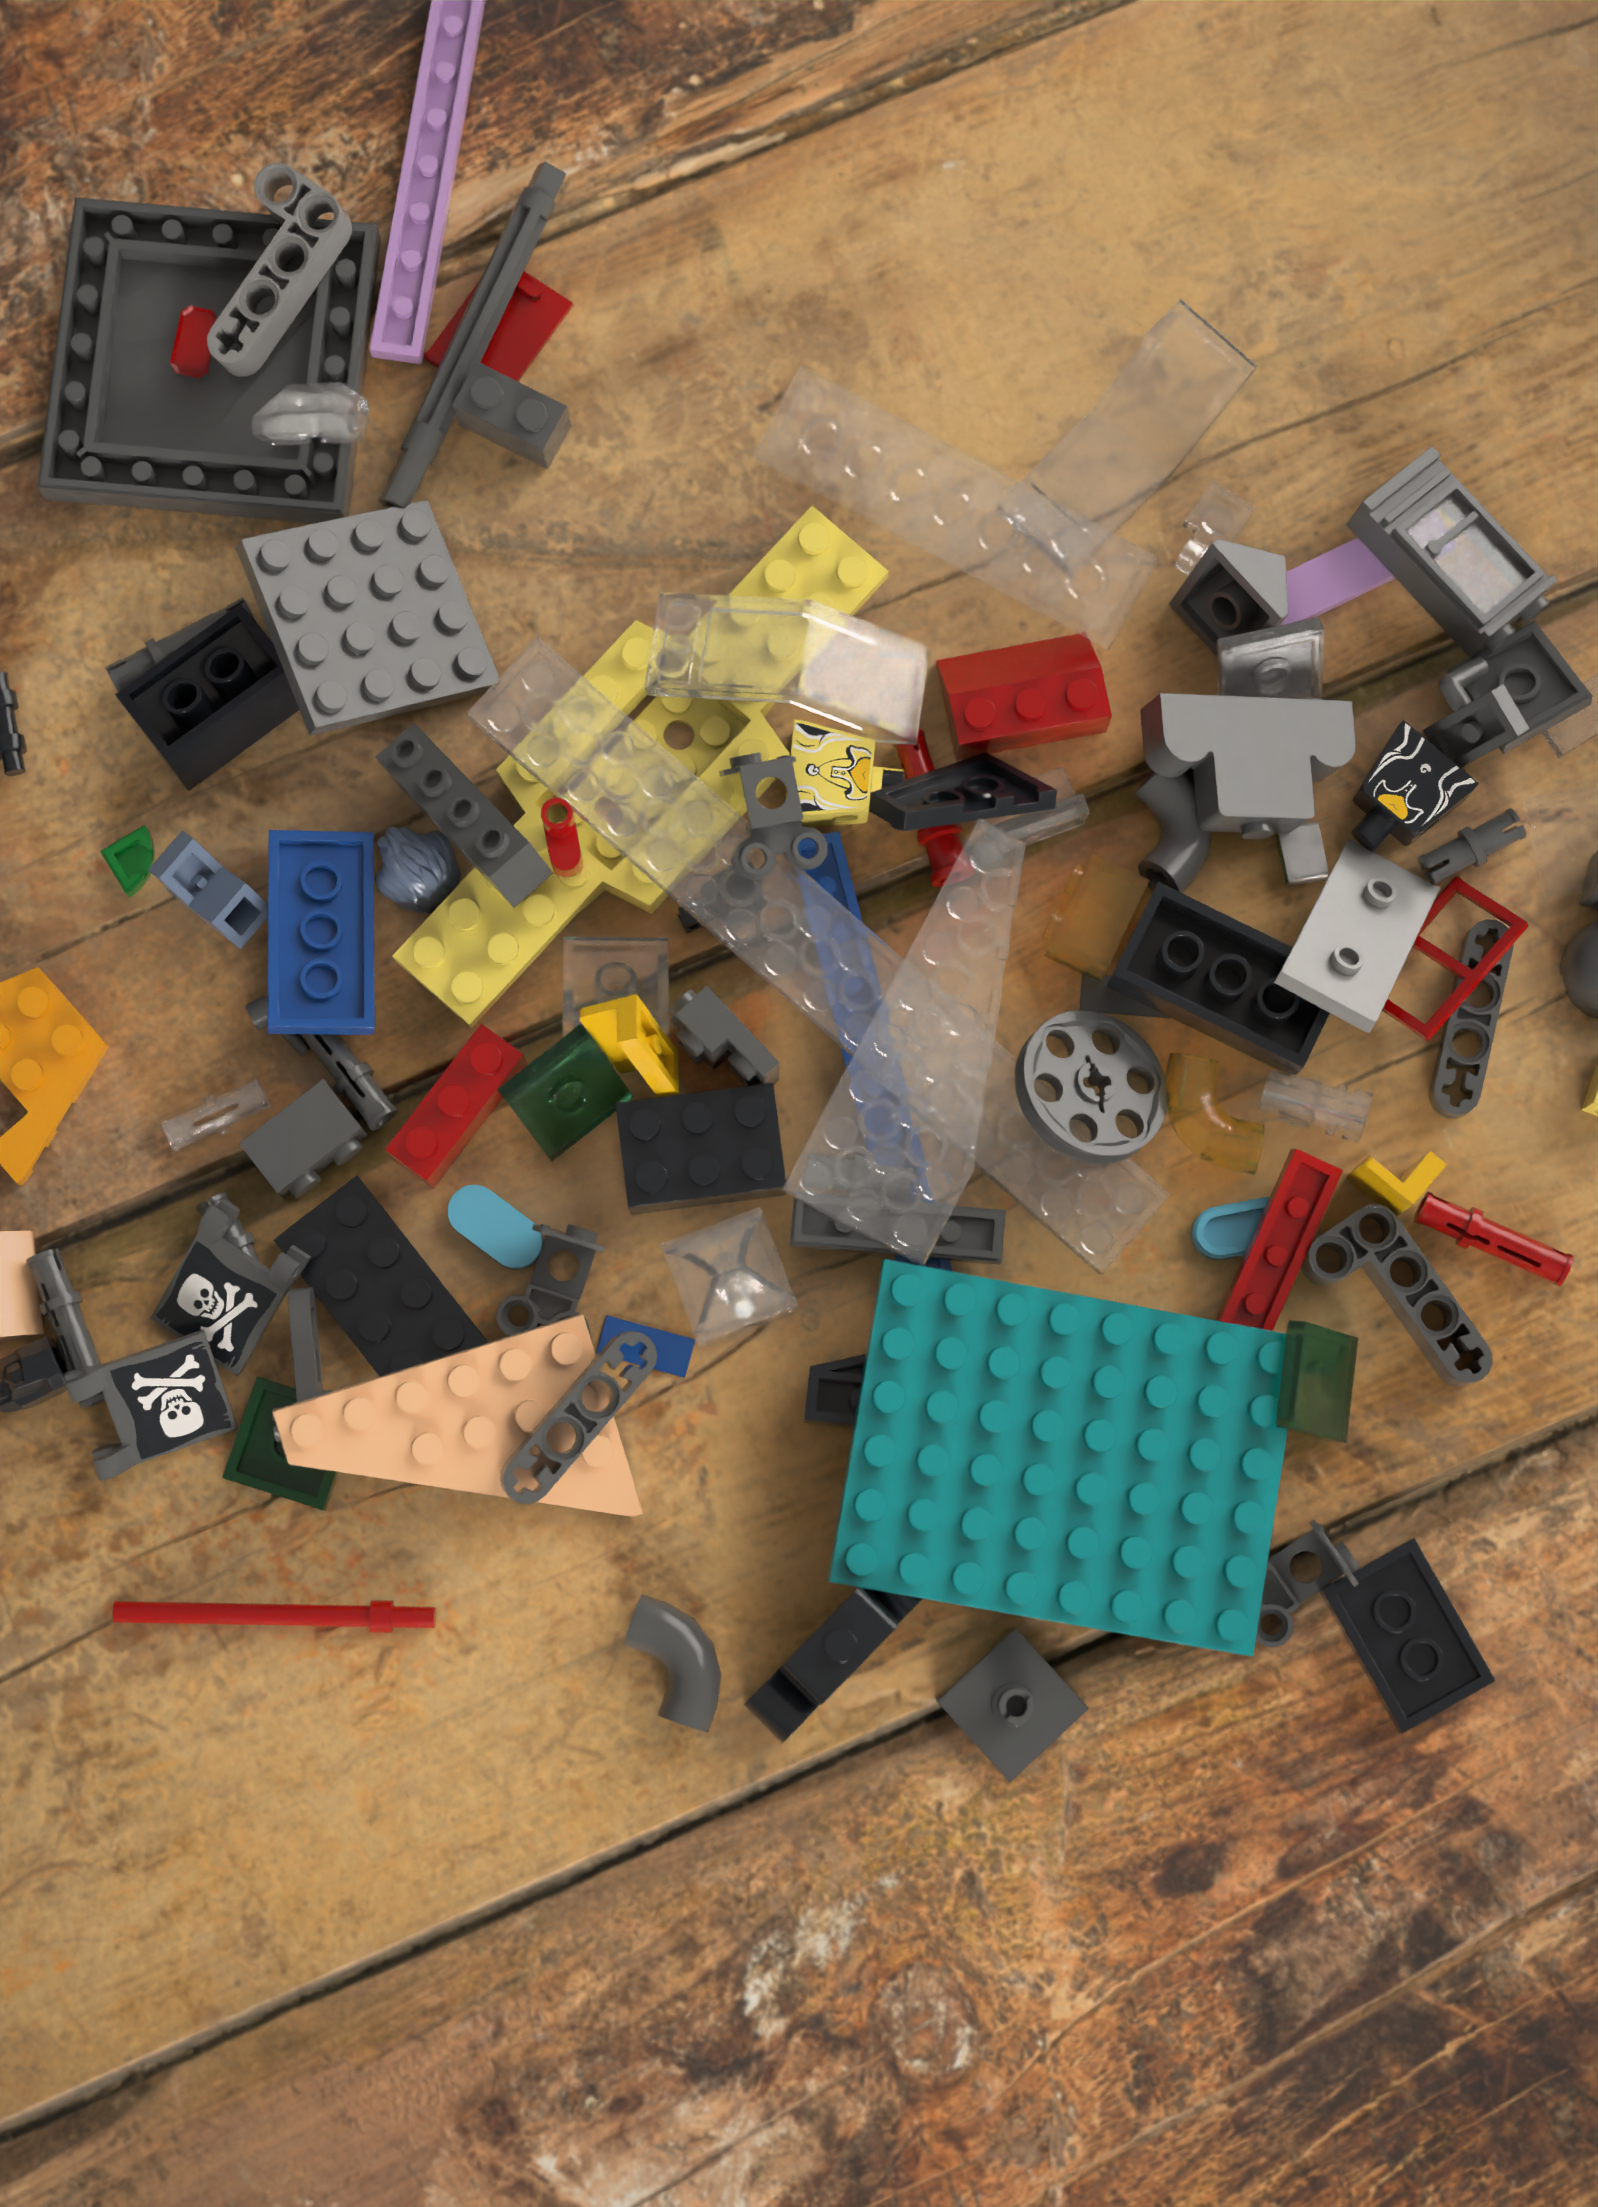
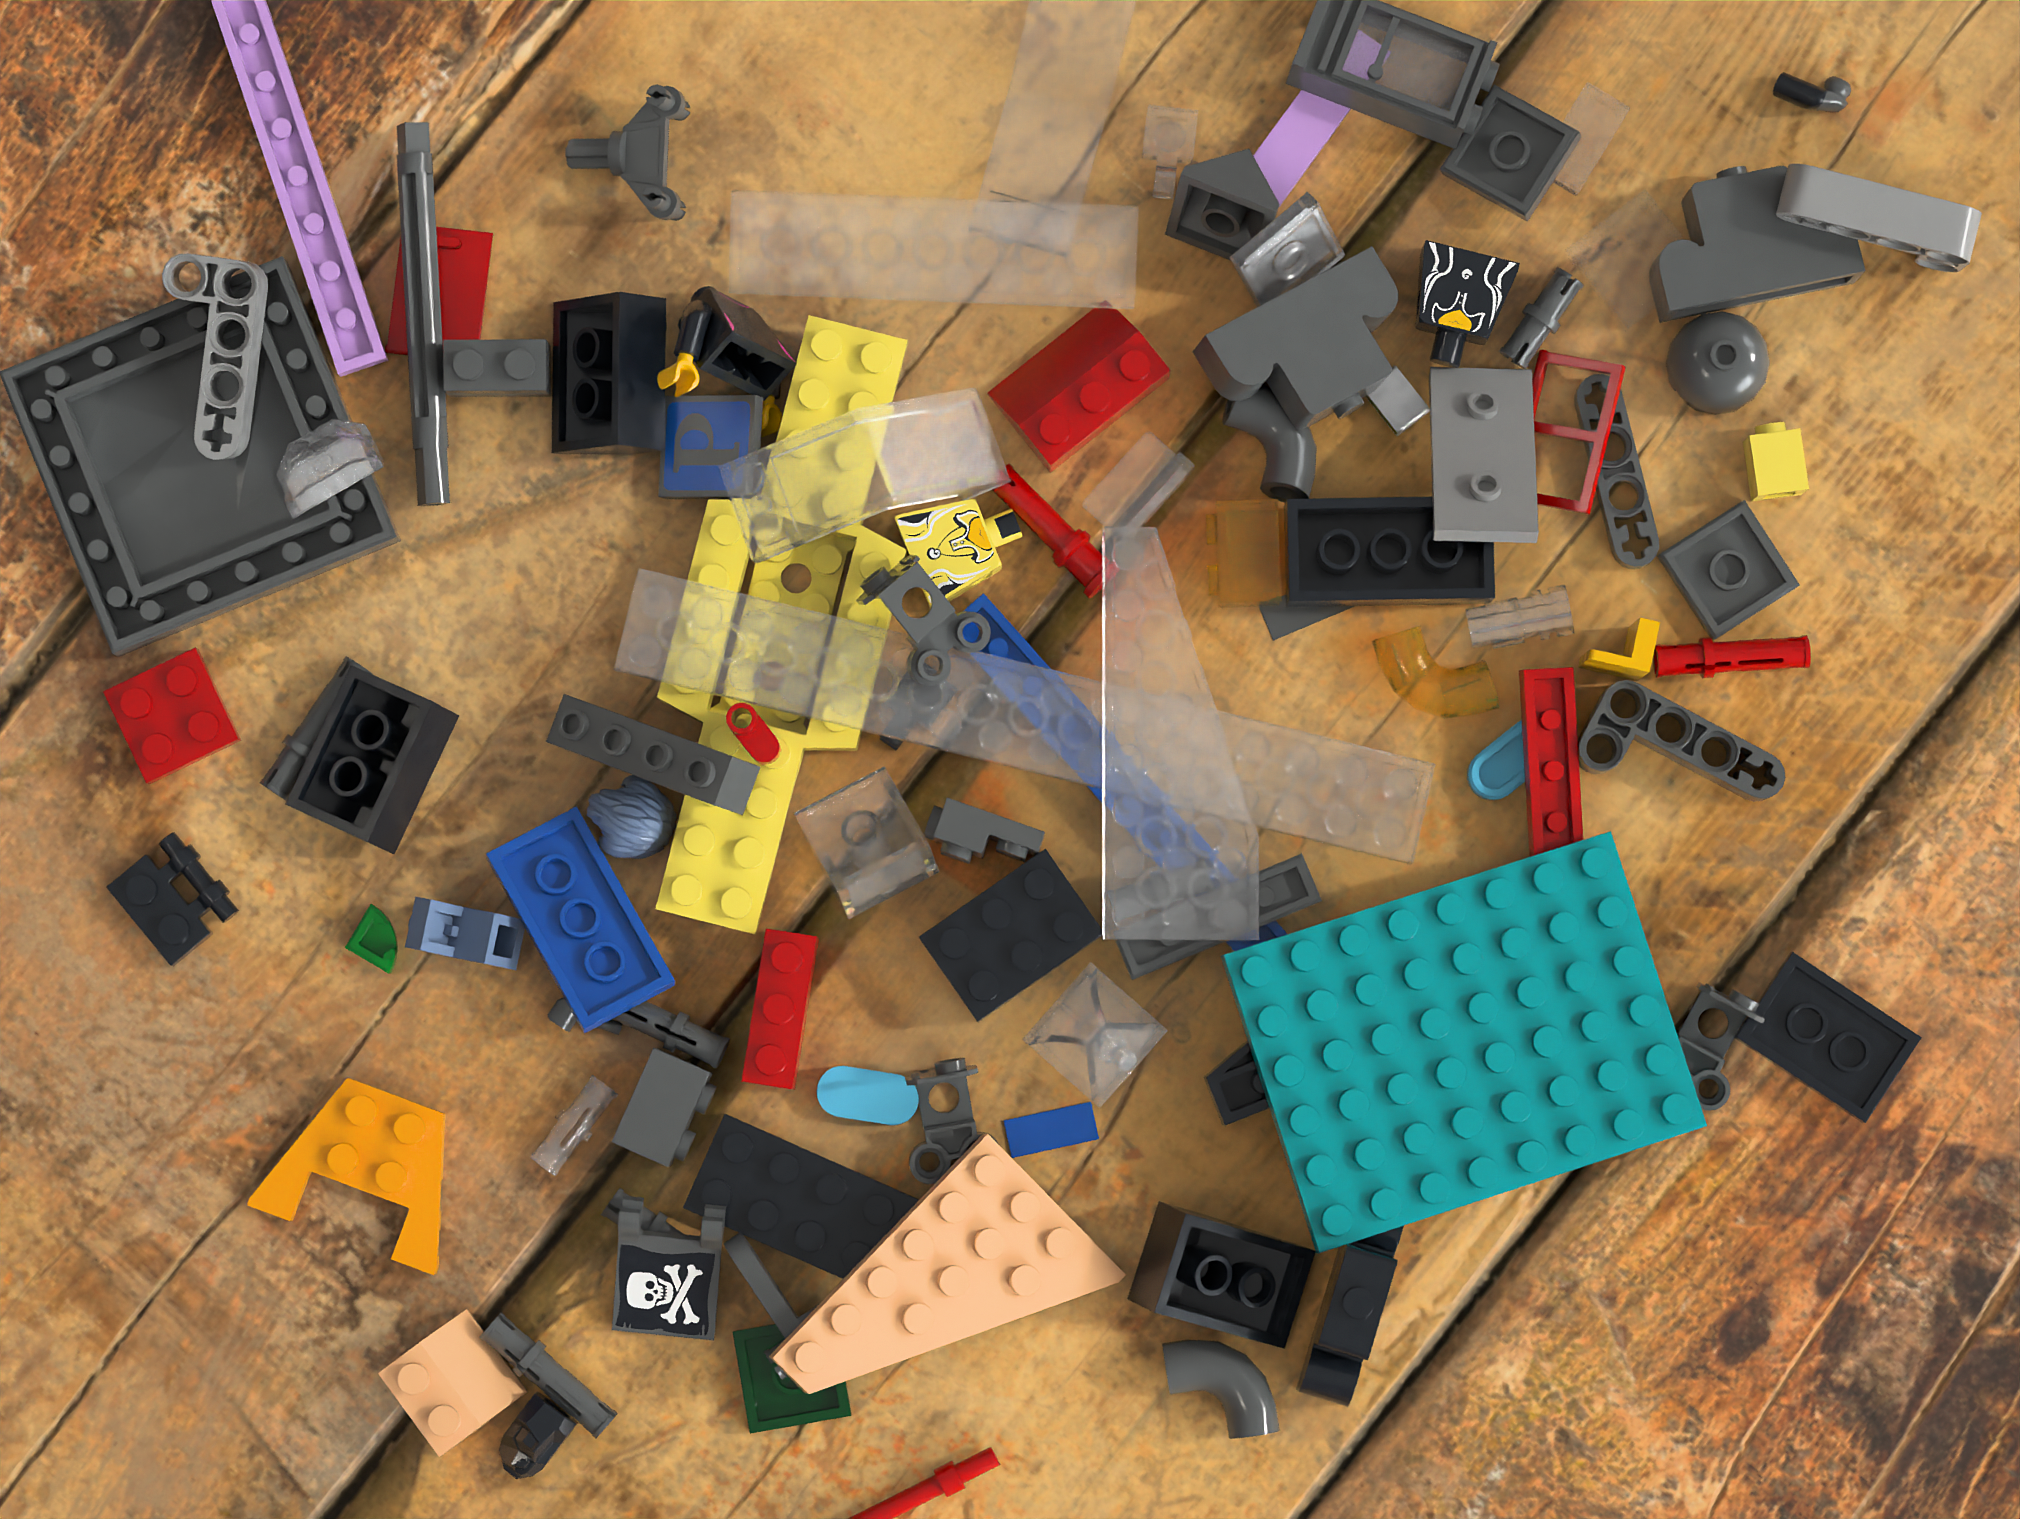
camera: 25 degrees left, 5 degrees up
(62, 572) = (172, 715): none -> red plate
(156, 1400) = (659, 1399): flag -> none
(190, 349) = (177, 448): red piece -> none
(367, 616) = (471, 618): plate -> none
(565, 1092) = (869, 949): clear green tile -> none
(585, 1422) = (1039, 1225): dark grey beam -> none
(608, 472) = (607, 374): none -> black slope
(634, 1042) = (908, 873): yellow panel -> none
(657, 562) = (701, 437): none -> tile
(729, 1560) = (1221, 1275): none -> black slope
(731, 499) = (731, 345): none -> black torso
(740, 293) = (639, 152): none -> dark grey axle
(961, 793) = (1076, 507): black wing -> none
(1012, 1704) = (1524, 1271): dark grey tile -> none
(1076, 1102) = (1323, 726): wedge -> none
(1317, 1381) = (1643, 862): clear green tile -> none
(1474, 725) = (1490, 214): dark grey plate -> none
(1529, 1160) = (1728, 570): none -> dark grey tile

